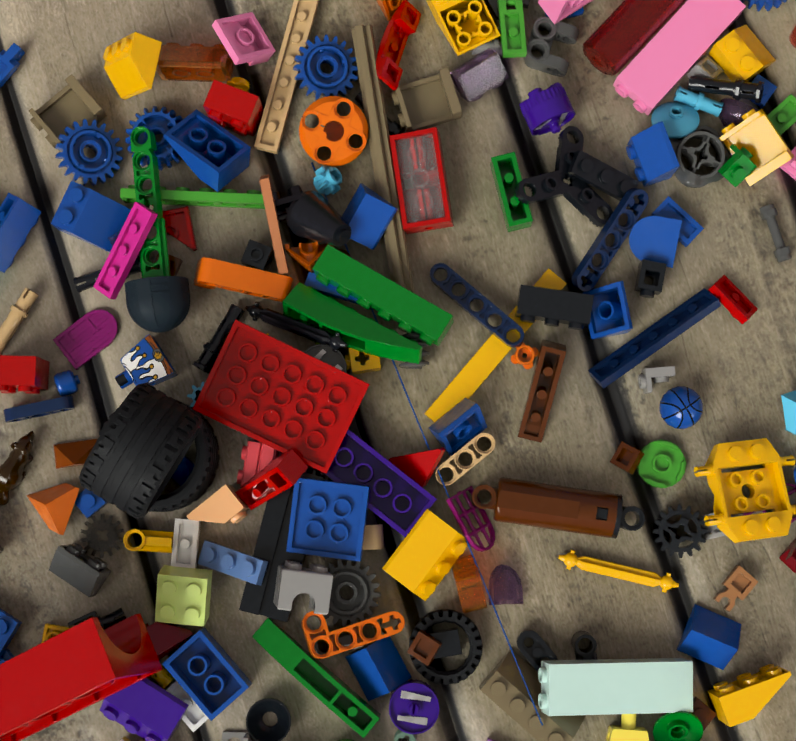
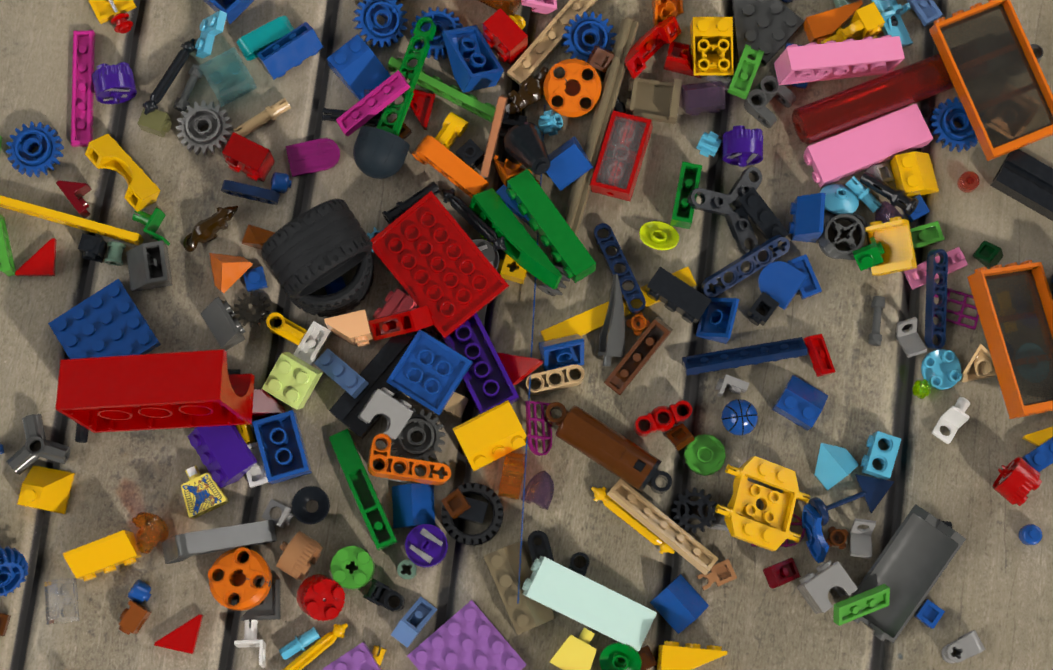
camera: 15 degrees right, 5 degrees down
(145, 365) = (350, 191): torso -> none
(224, 235) = (451, 128): none -> yellow piece
(290, 158) = (529, 93): none -> dark brown animal
(348, 84) = (600, 58): none -> reddish brown plate
(433, 44) = (679, 59): none -> red slope
(502, 249) = (659, 235): none -> neon yellow dish
(502, 377) = (613, 331): none -> dark grey piece
(509, 123) = (709, 144): none -> medium azure gear
(607, 438) = (670, 412): none -> red piece
(655, 564) = (662, 526): none -> tan plate
(737, 360) = (800, 403): none -> blue slope

